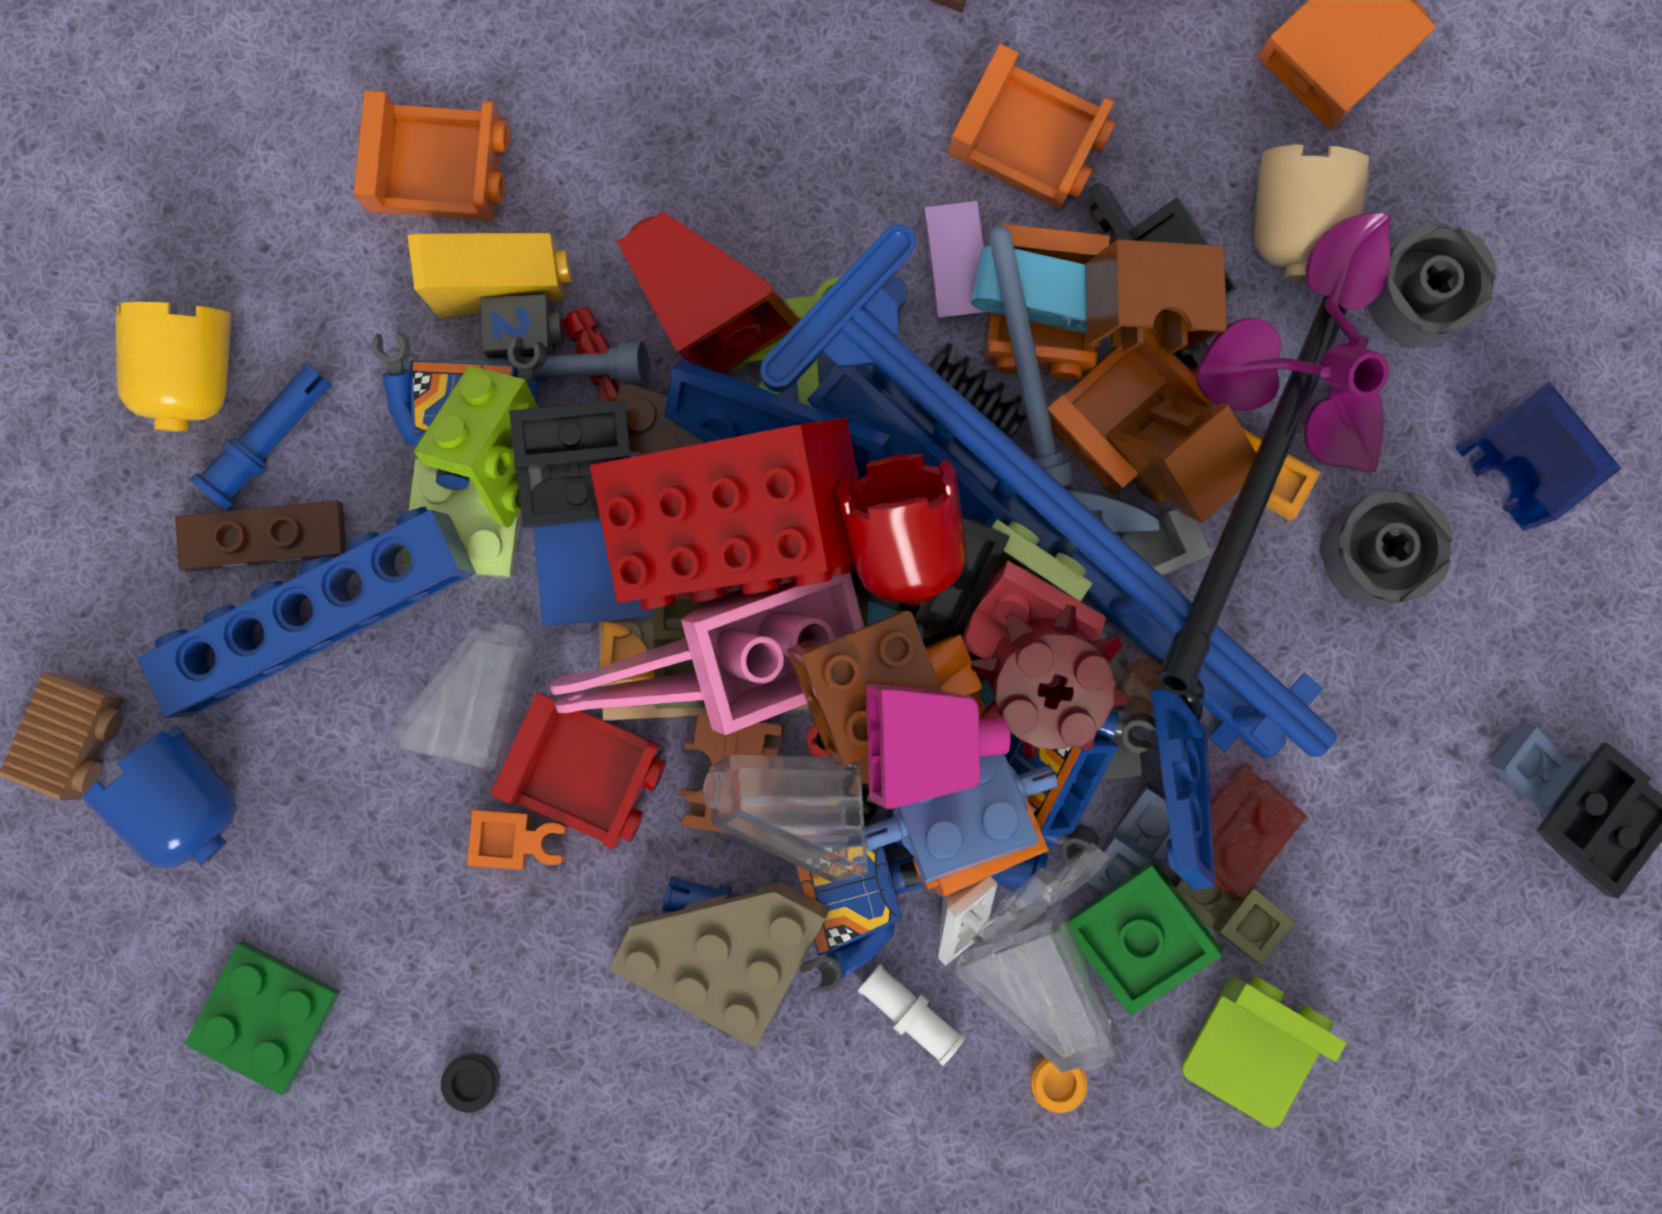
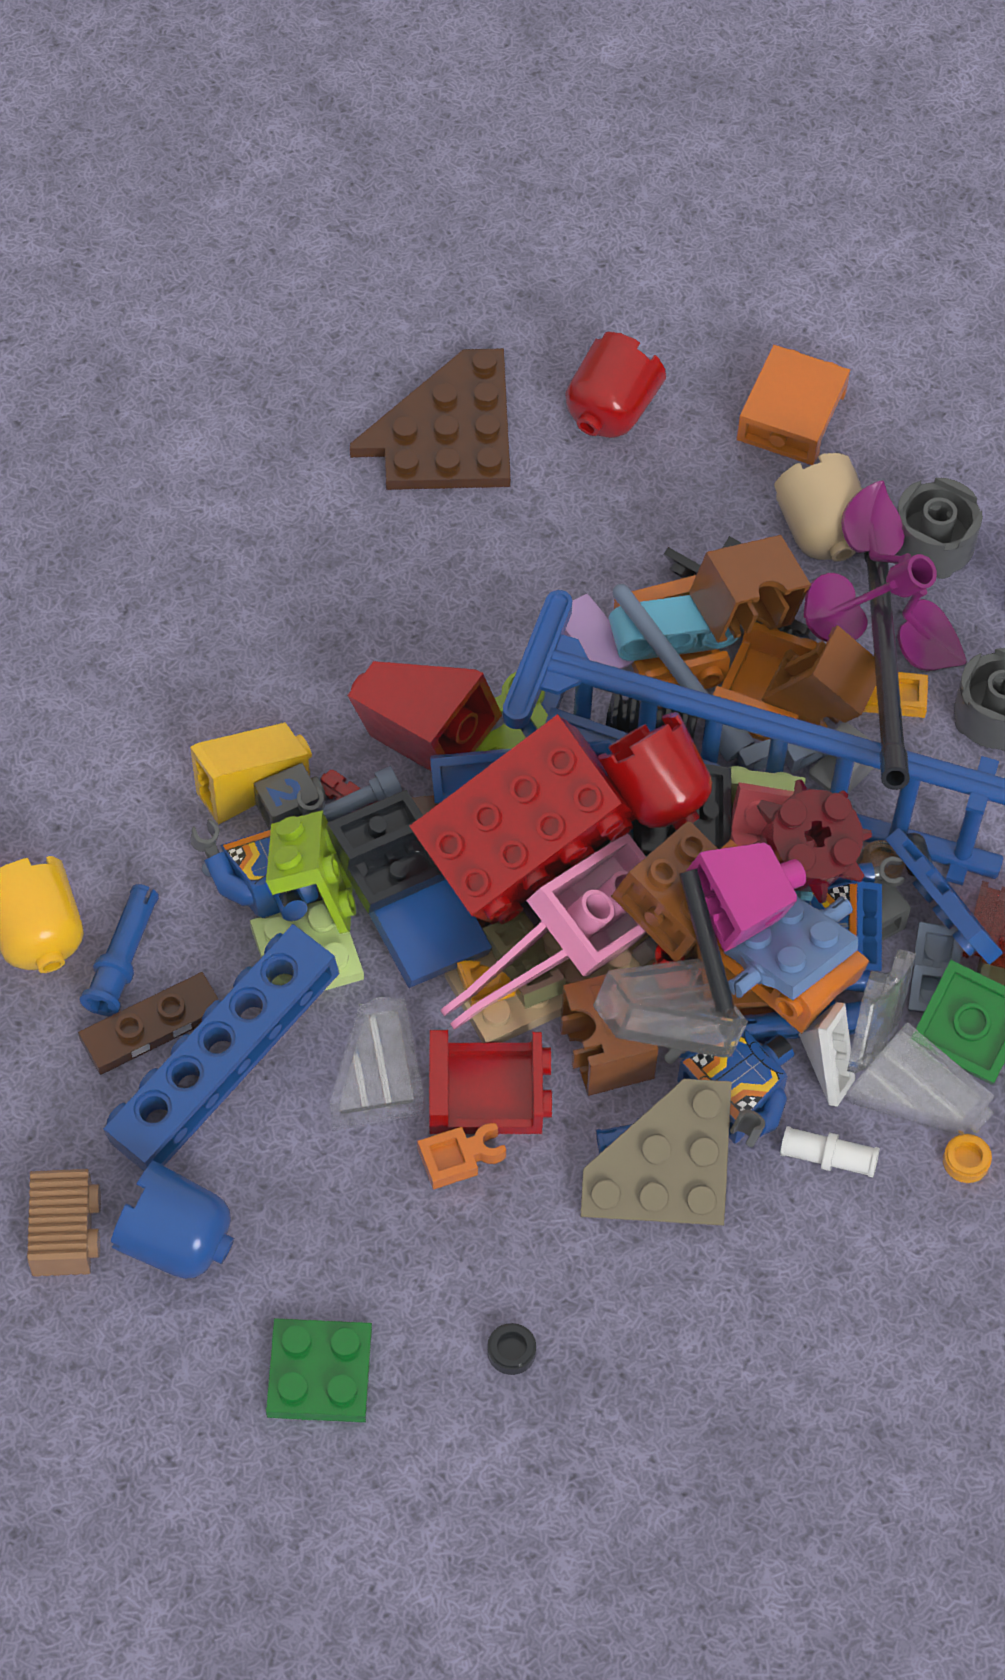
camera: 25 degrees left, 25 degrees down
(430, 159) = (164, 716): orange panel -> none
(854, 775) = (706, 940): none -> black bar
(1030, 131) = (602, 540): orange panel -> none

